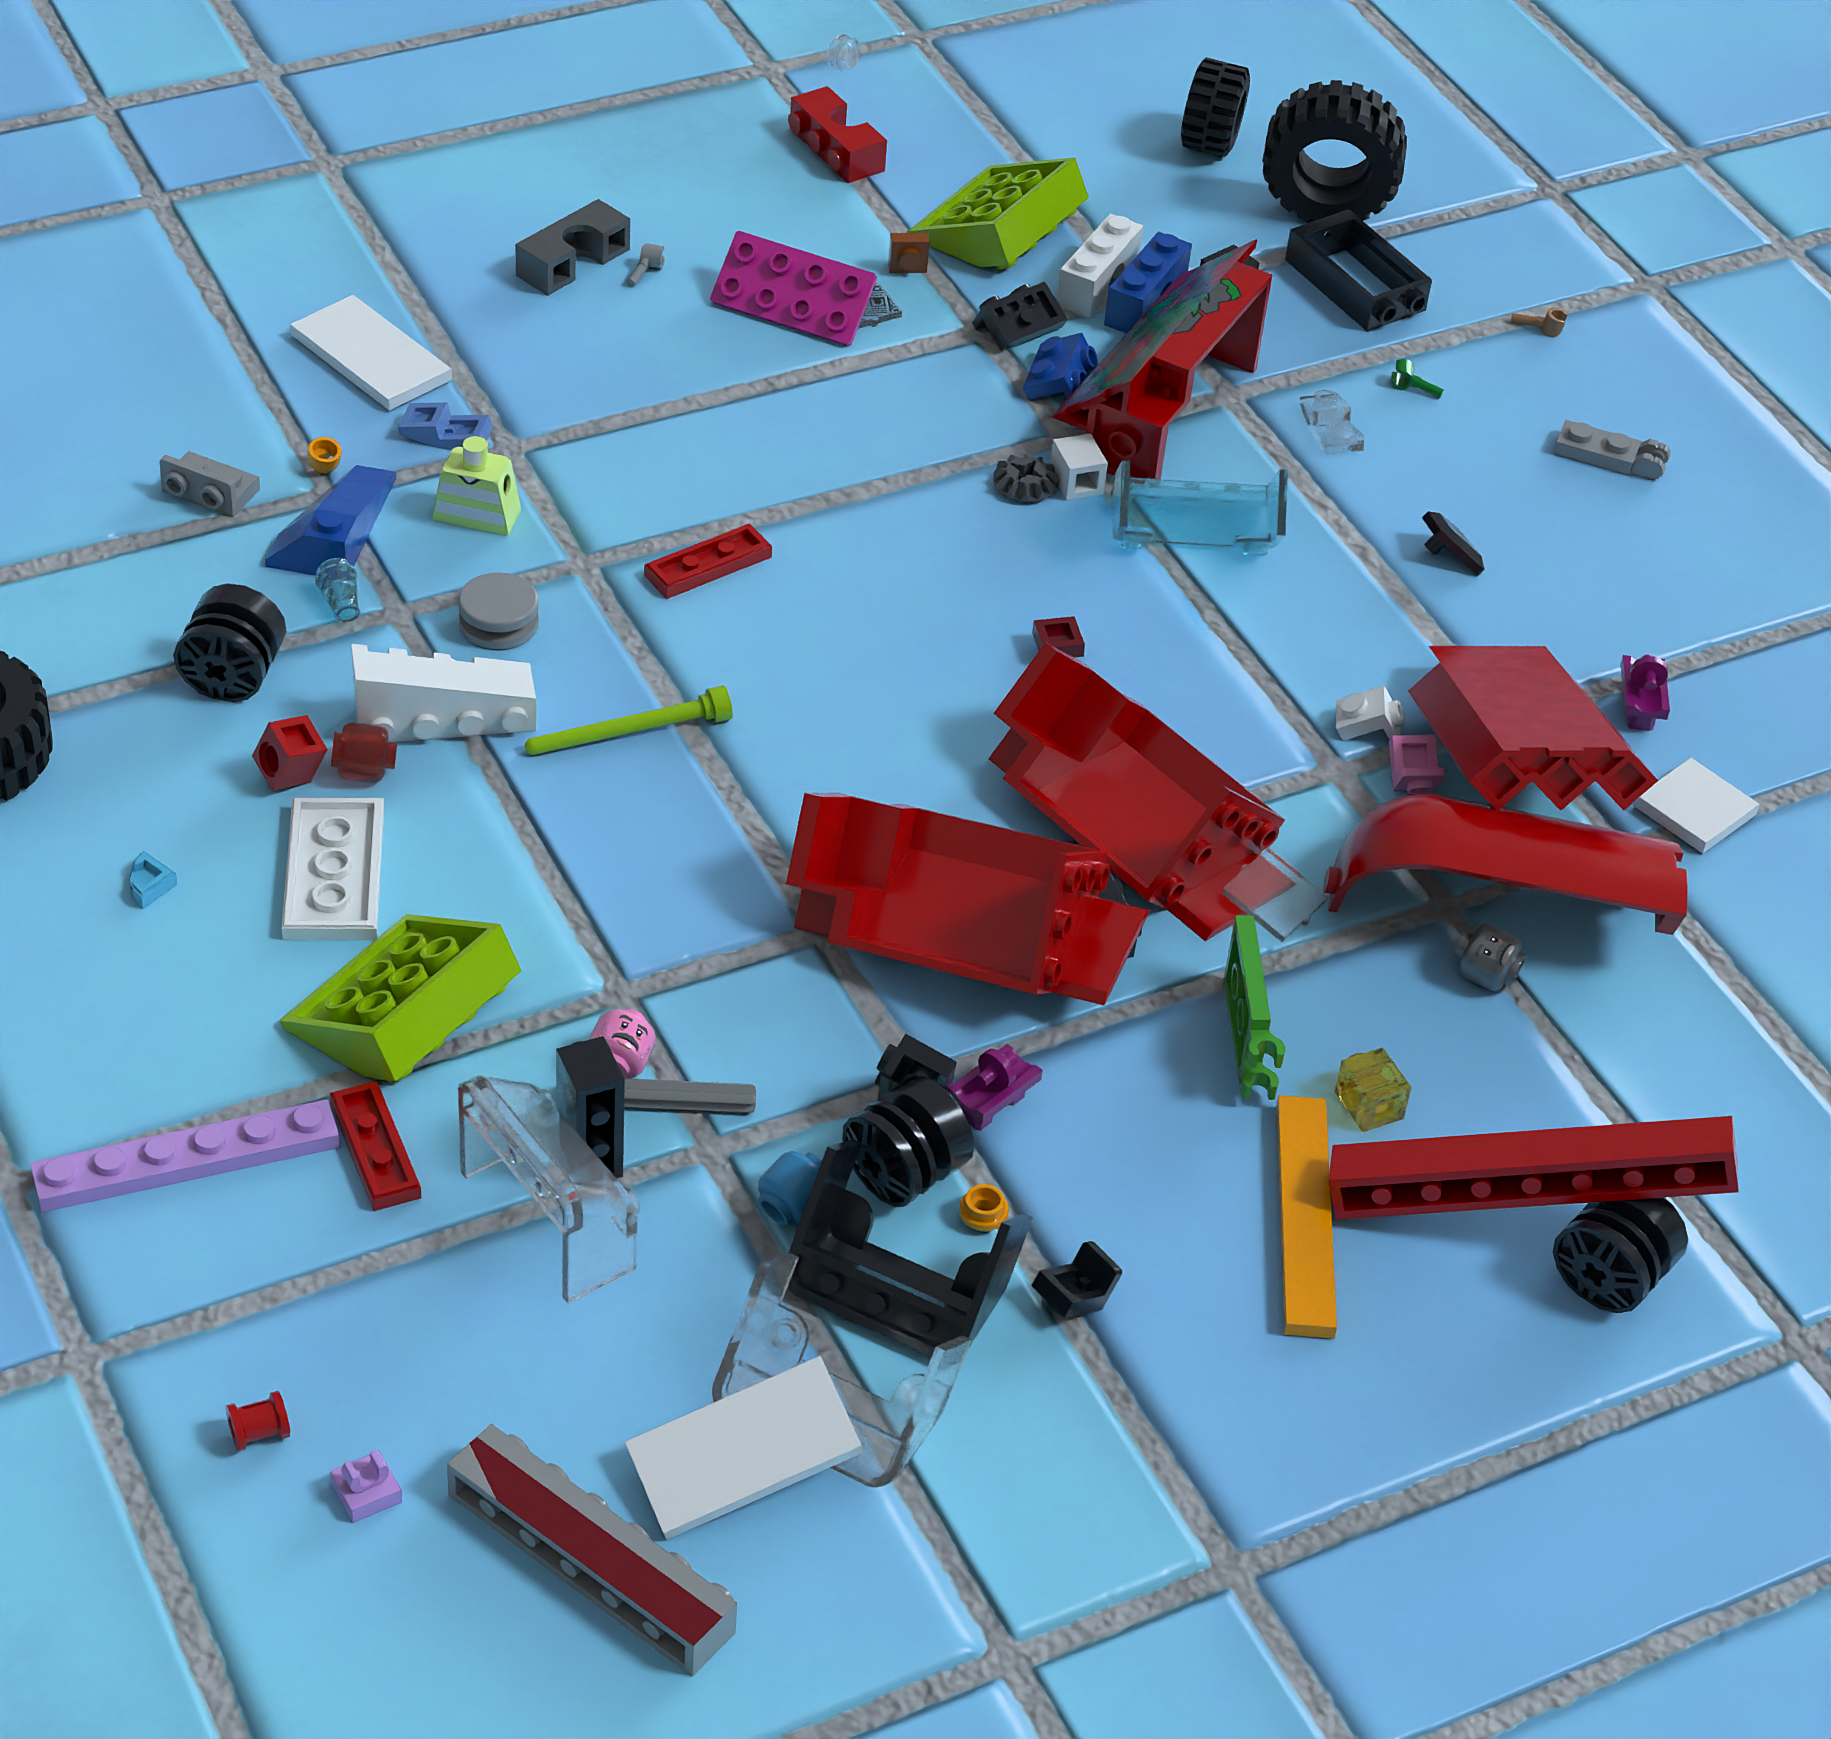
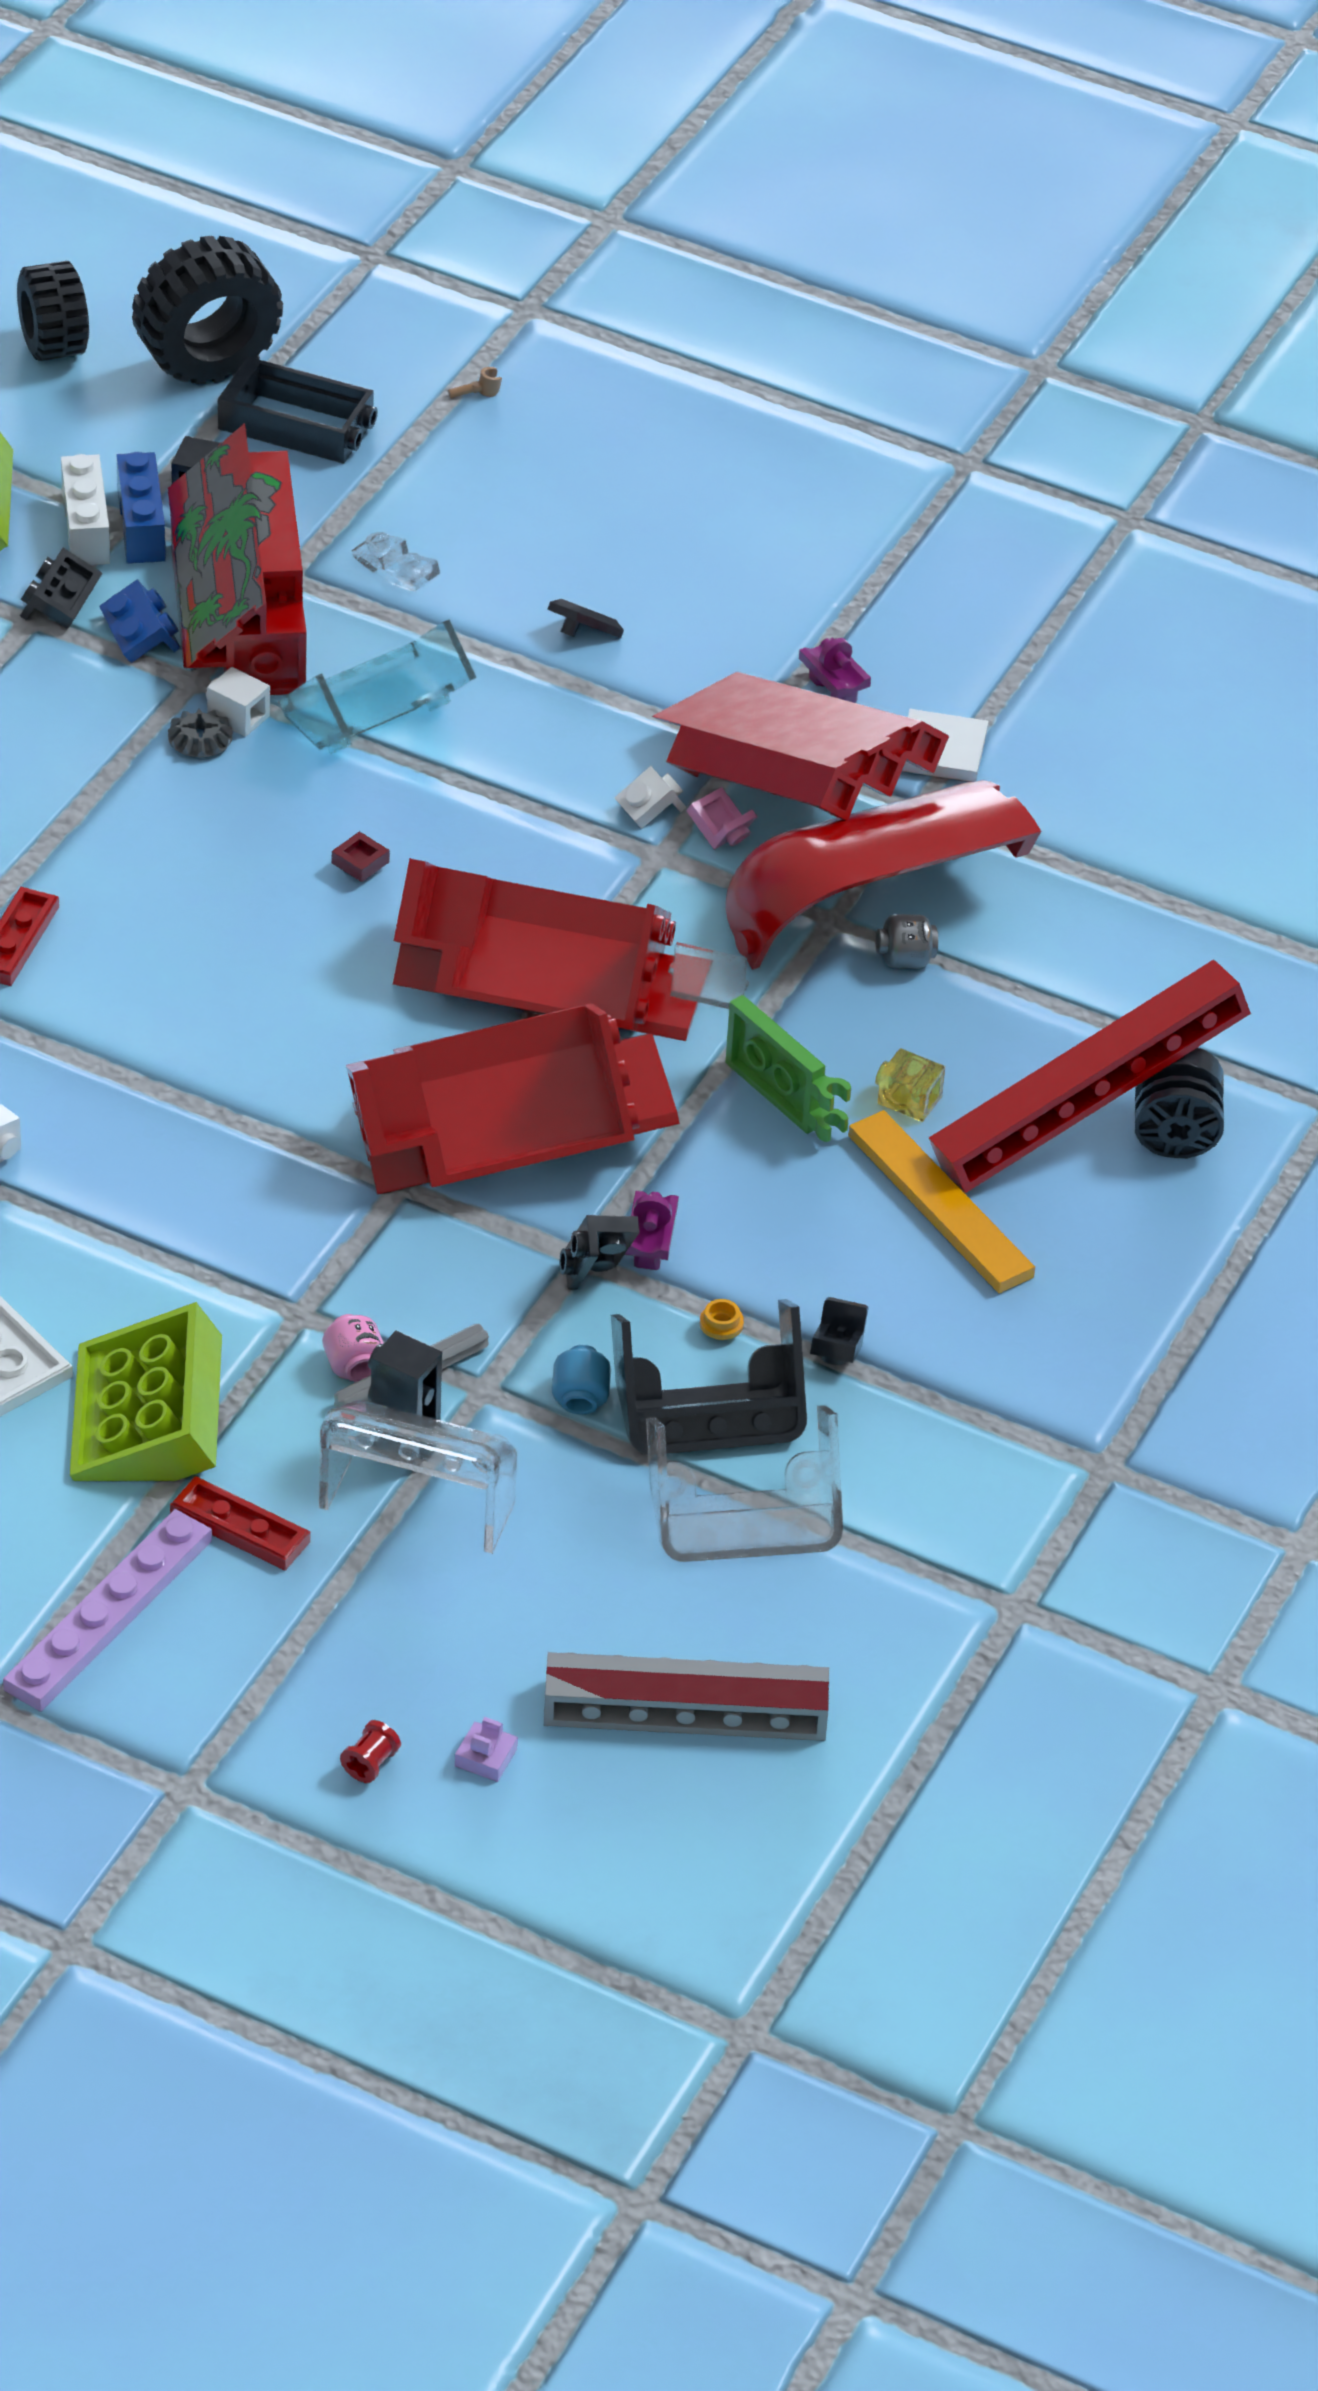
camera: 35 degrees left, 0 degrees up
(712, 705) = (147, 1052): lime piece -> none
(744, 1447) = (729, 1569): white tile -> none
(909, 1140) = (647, 1288): black wheel -> none
(1405, 378) = (418, 491): green hand -> none
(1612, 450) = (631, 476): light grey hinge -> none

